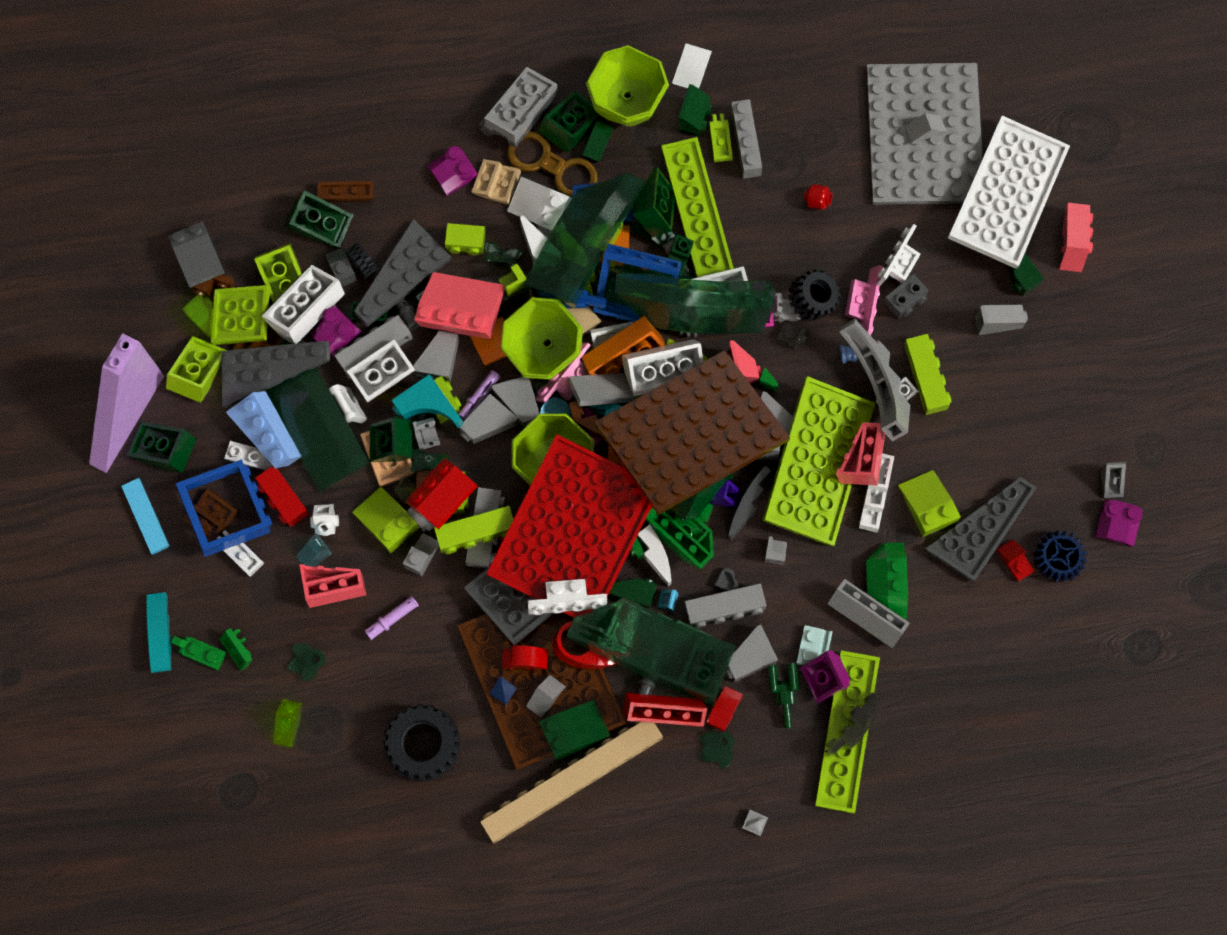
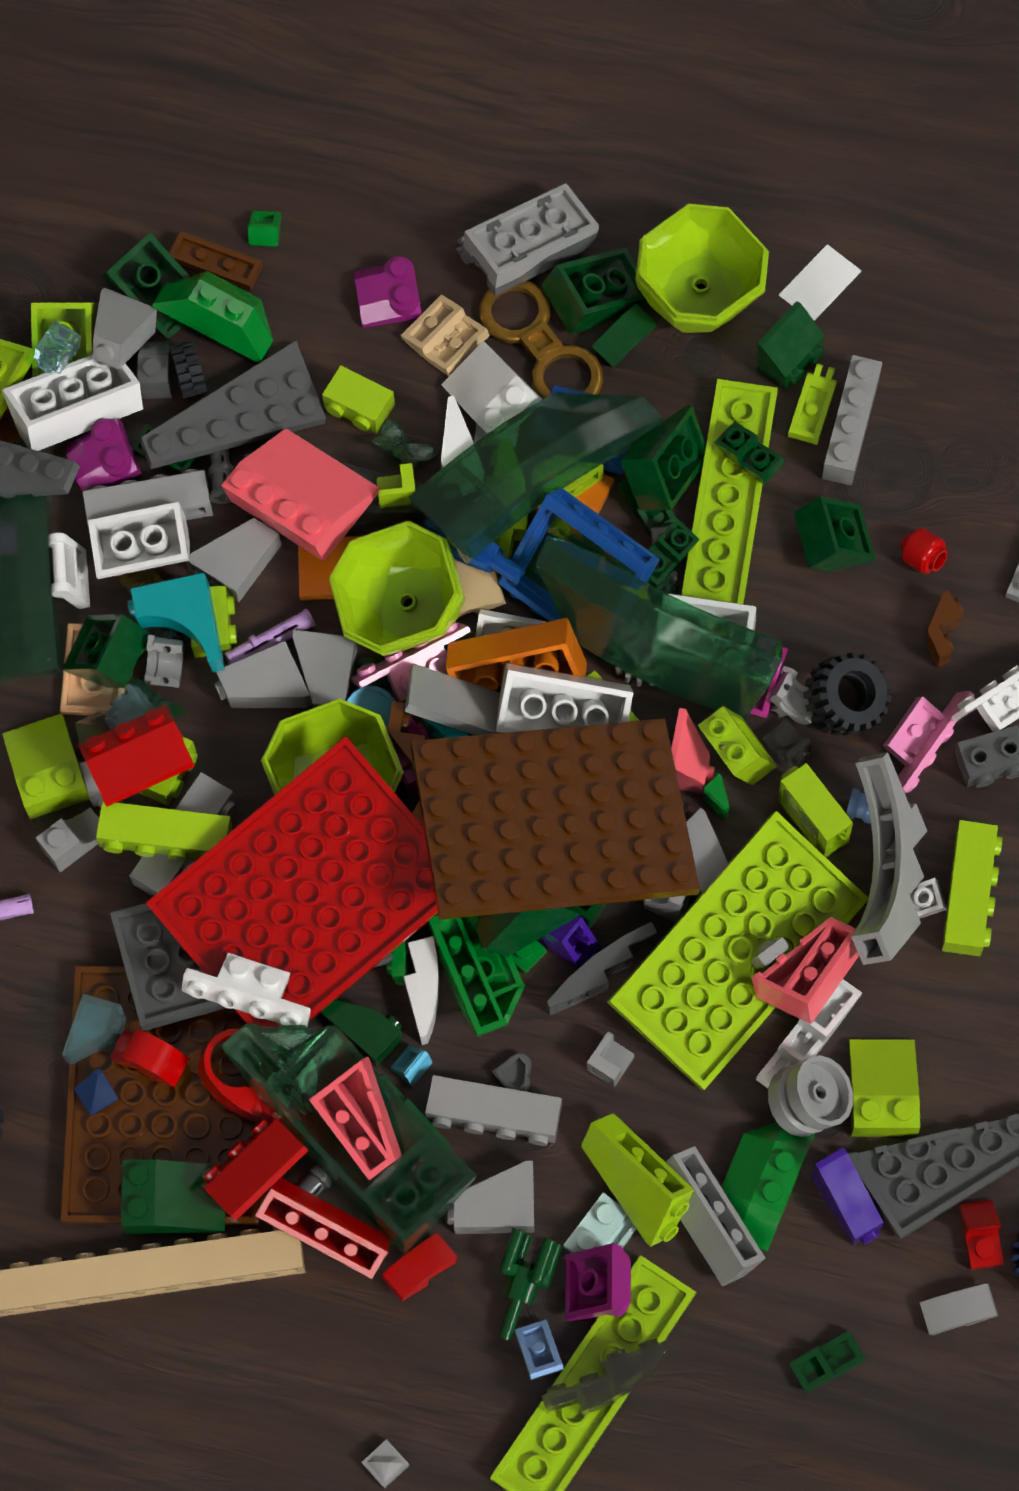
camera: 25 degrees right, 5 degrees down
(282, 279) = (56, 348): none -> clear light blue brick
(311, 252) = (121, 328): none -> light grey slope
(362, 220) = (218, 312): none -> green wedge
(364, 161) = (264, 228): none -> green slope
(420, 469) = (127, 707): none -> clear light blue brick
(486, 655) = (93, 1028): none -> clear light blue slope
(545, 696) = (155, 1127): light grey slope -> none
(613, 694) = (252, 1166): none -> red slope
(659, 642) = (359, 1118): none -> coral wedge
(698, 181) = (748, 453): none -> dark green slope
(716, 750) = (377, 1326): clear green plate -> none
(765, 208) = (833, 534): none -> dark green slope
(768, 348) = (739, 745): none -> lime window
(810, 725) = (539, 1350): none -> light blue slope
(822, 609) = (638, 1179): none -> lime slope
(825, 366) = (814, 810): none -> lime window
(837, 456) = (768, 952): none -> light grey tile
(846, 229) = (945, 619): none -> reddish brown slope
(894, 525) = (810, 1096): none -> light grey wheel
(938, 571) = (847, 1197): none -> dark purple slope
(965, 664) = (828, 1361): none -> dark green slope
(1022, 605) = (958, 1309): none -> light grey slope

